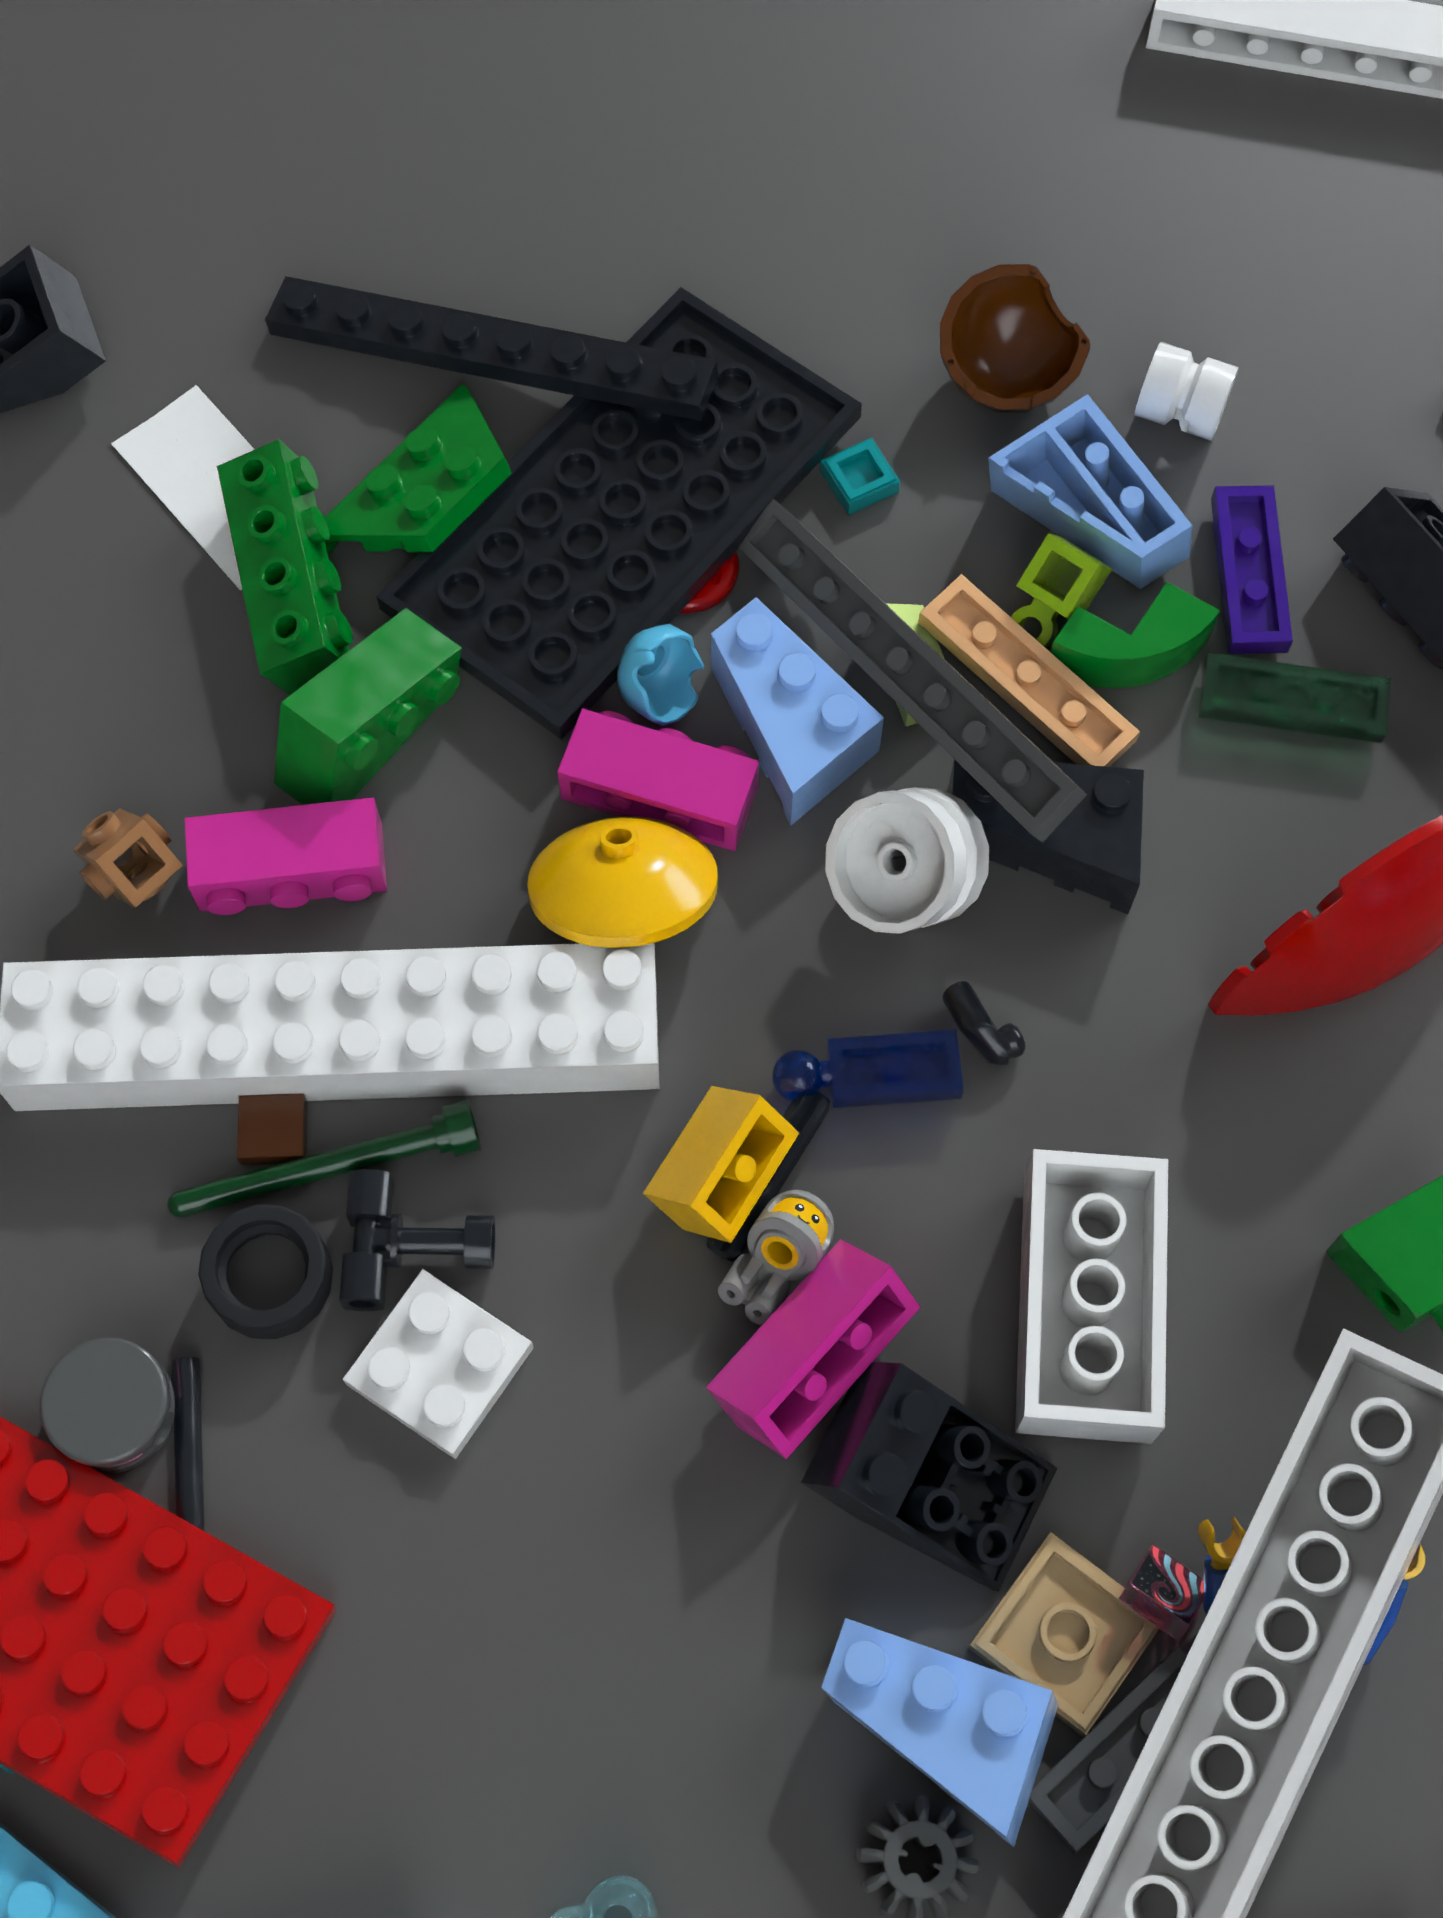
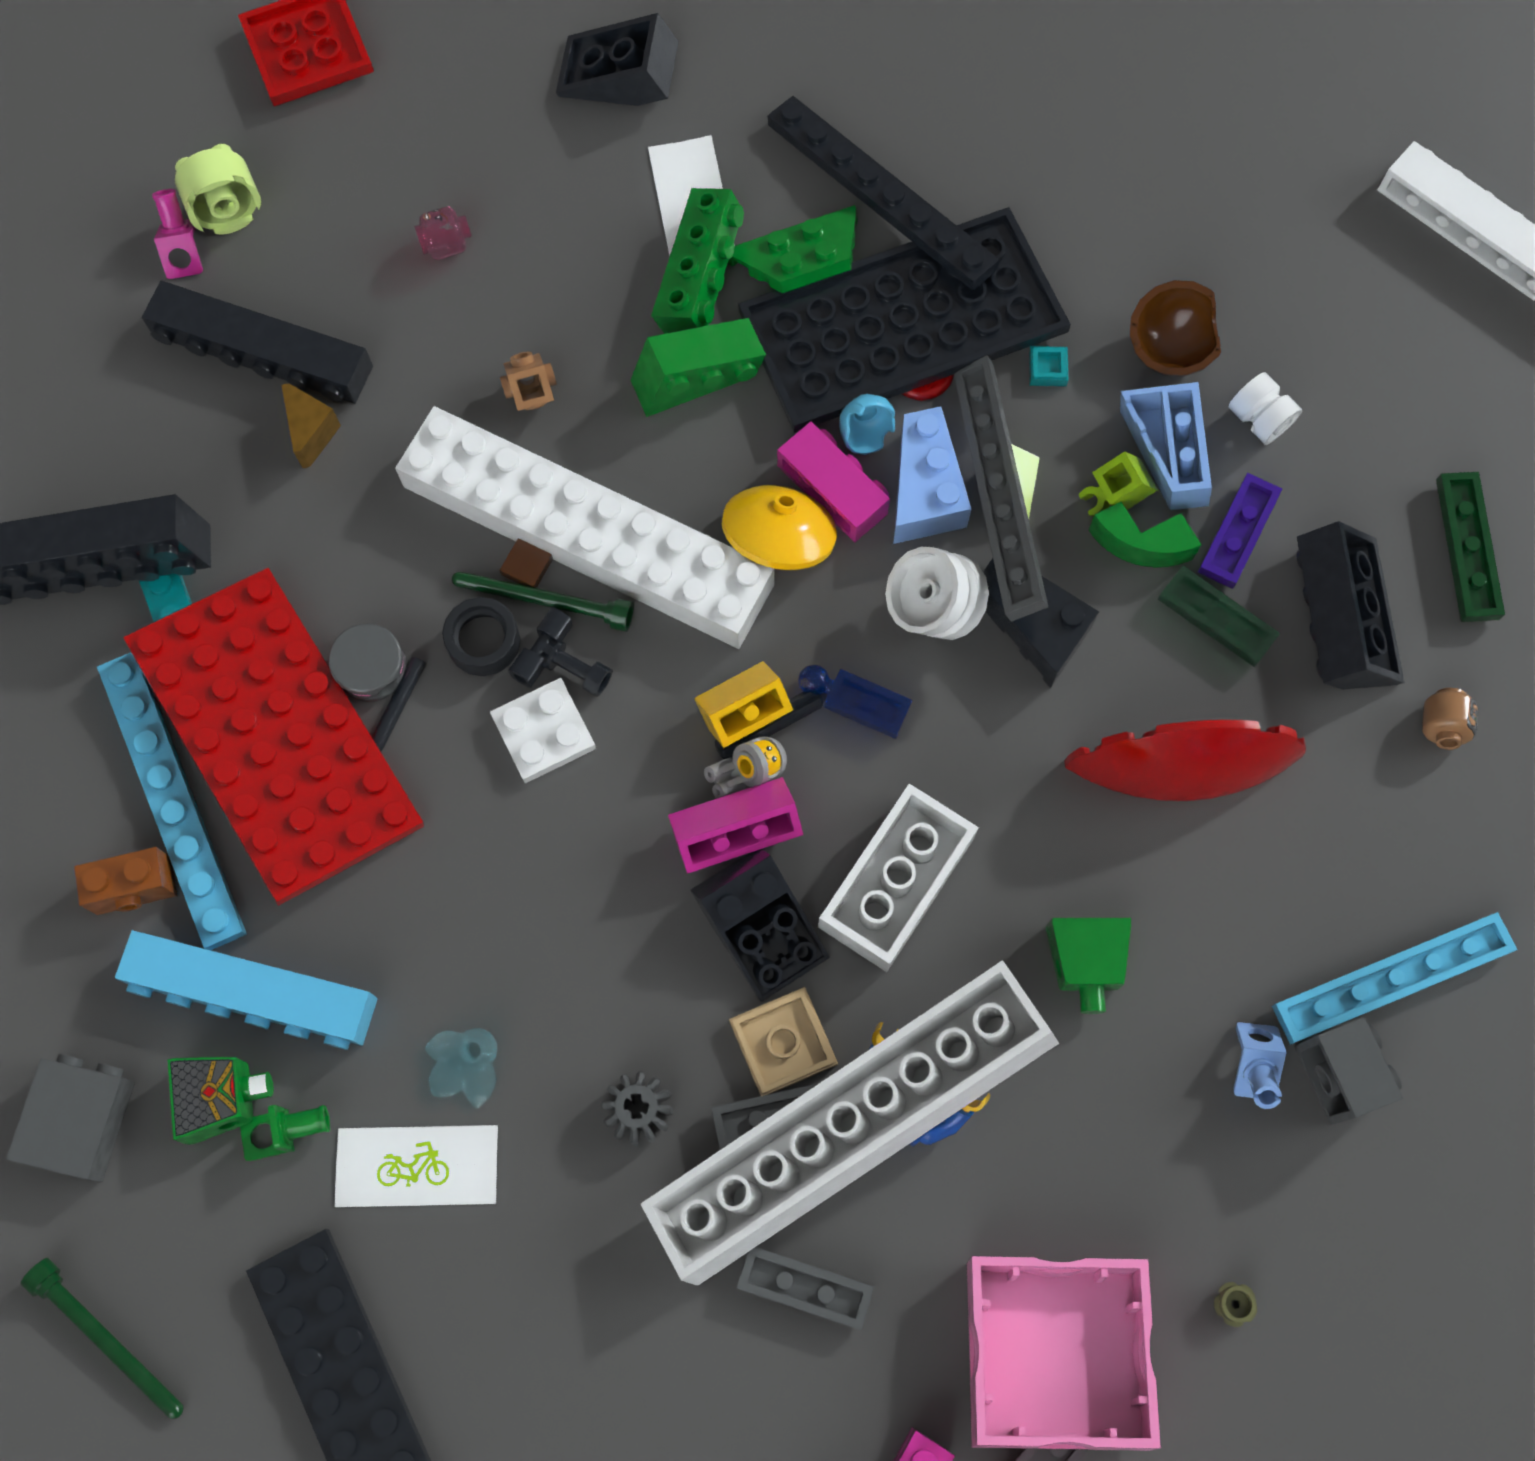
camera: 30 degrees right, 5 degrees up
(285, 855) = (612, 422): dark pink brick -> none
(948, 1717) = (691, 1048): light blue wedge -> none
(976, 1025) = (926, 704): black arm -> none
(1027, 675) = (1072, 527): light nougat plate -> none
(1164, 1592) = (843, 1046): tile -> none

